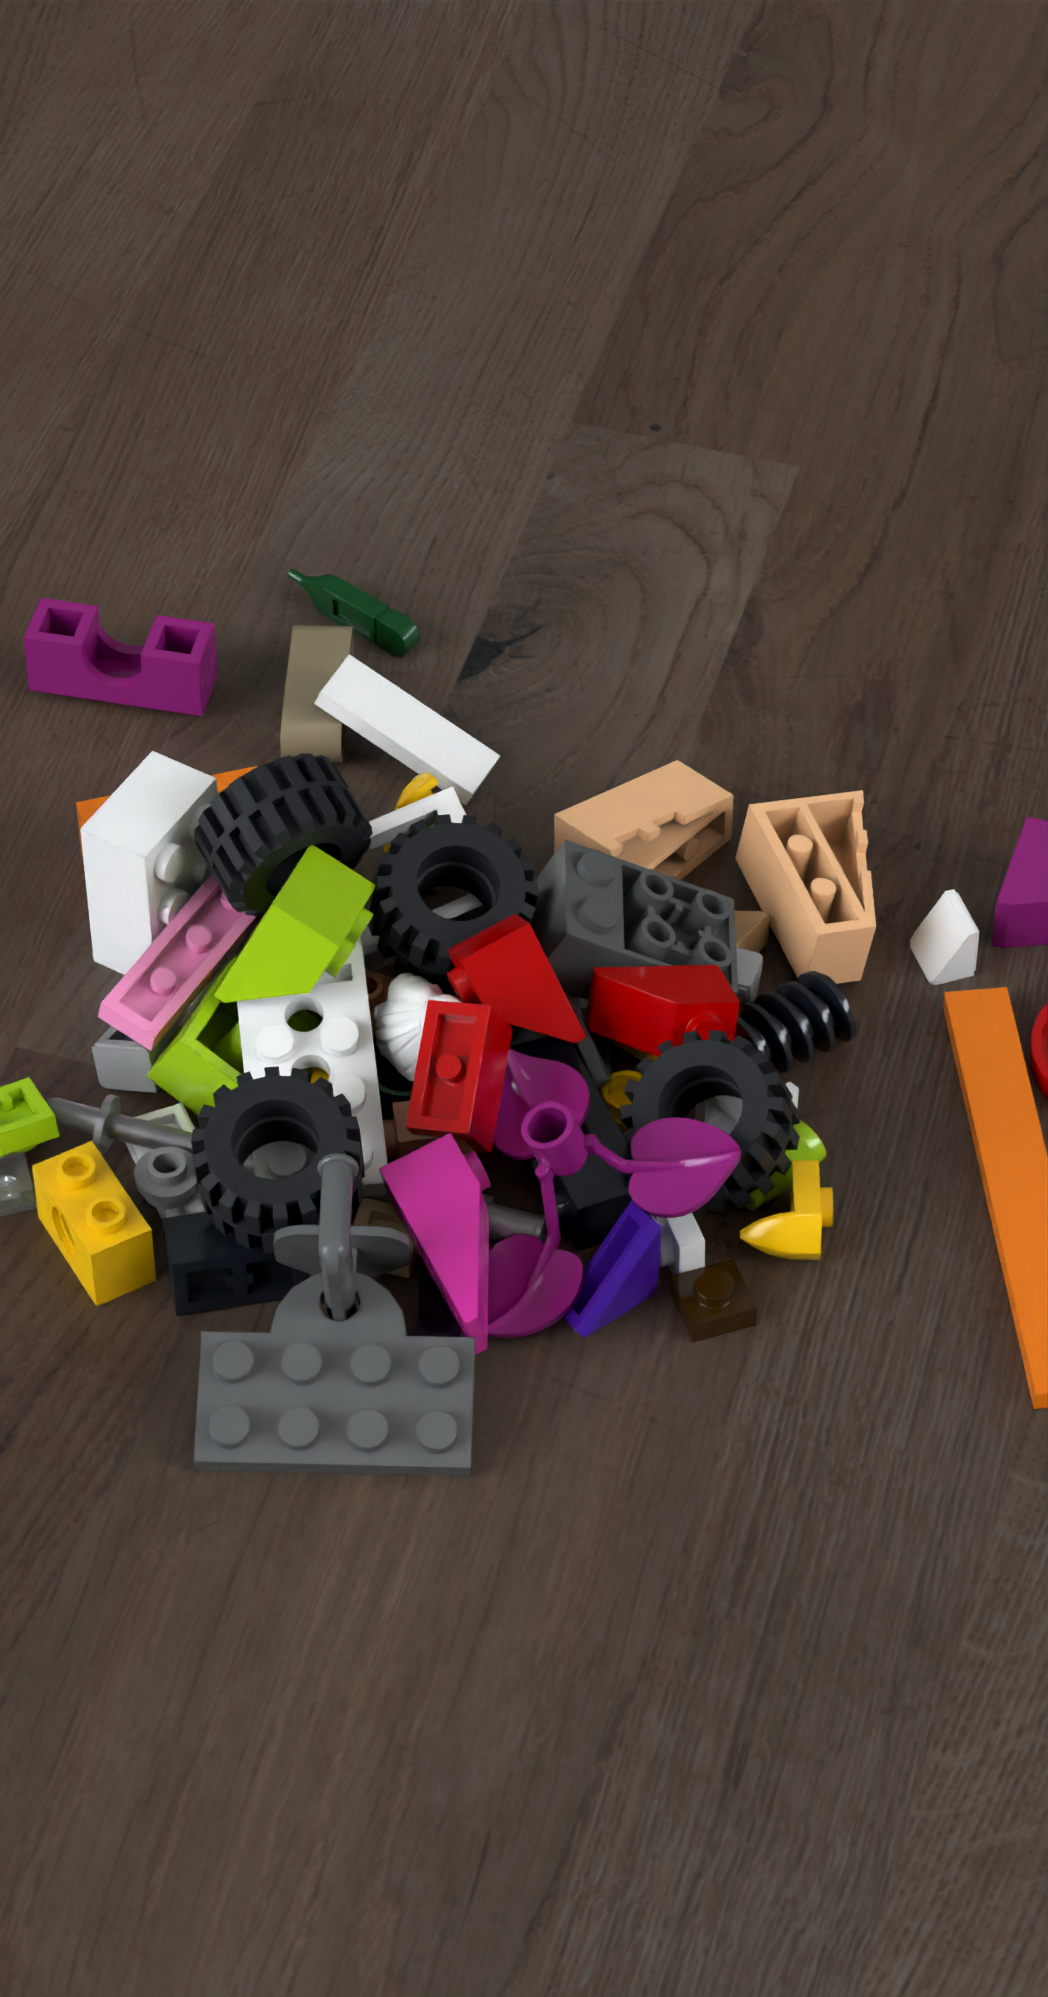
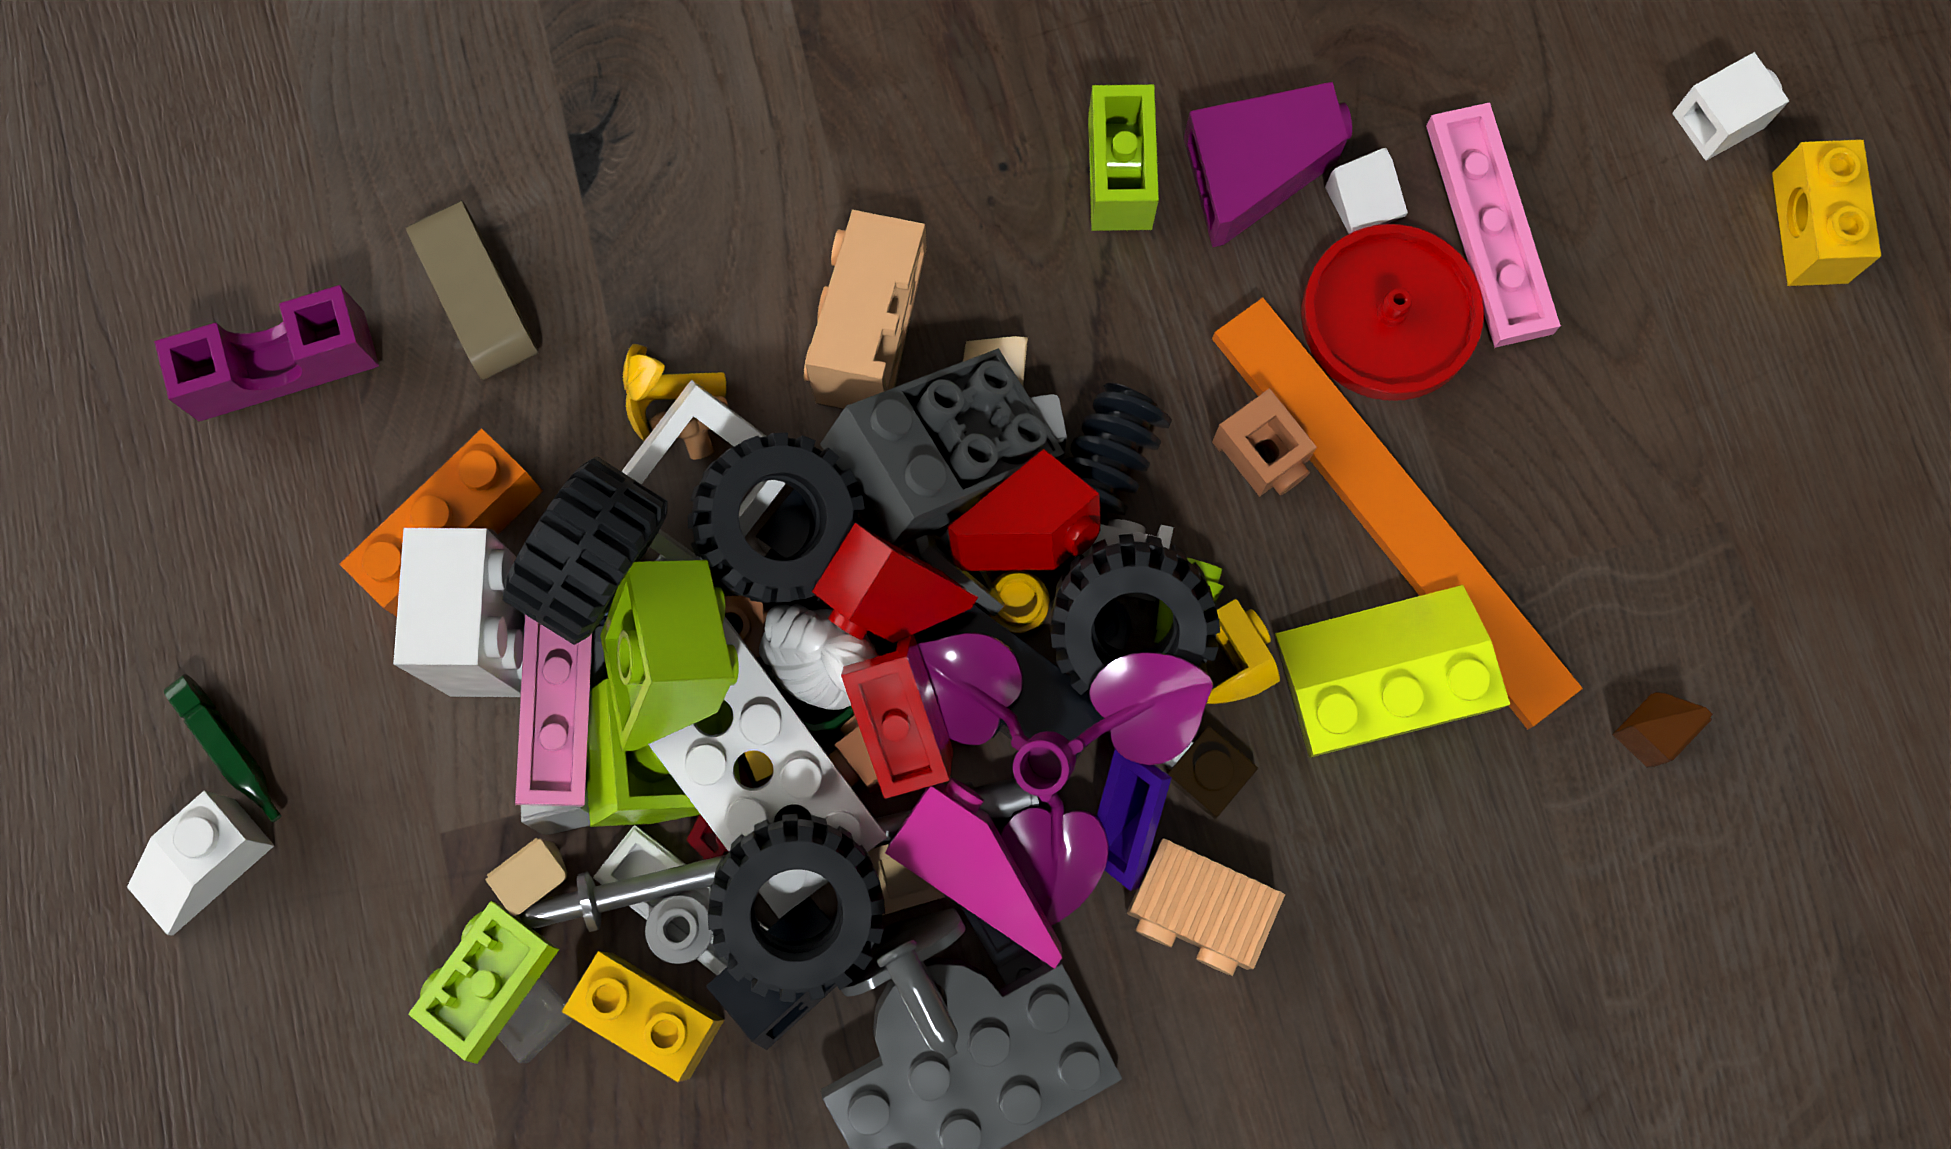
camera: 30 degrees left, 30 degrees up
(71, 1078) = (528, 875): none -> tan slope
(356, 608) = (450, 170): dark green piece -> none
(406, 728) = (583, 297): white tile -> none
(634, 1377) = (1204, 906): none -> light nougat brick
(813, 880) = (1048, 282): light nougat wedge -> none
(920, 1295) = (1391, 671): none -> neon yellow slope
(935, 1096) = (1268, 425): none -> nougat brick
(944, 828) = (1123, 157): none -> lime brick
(946, 941) = (1183, 274): white slope -> none

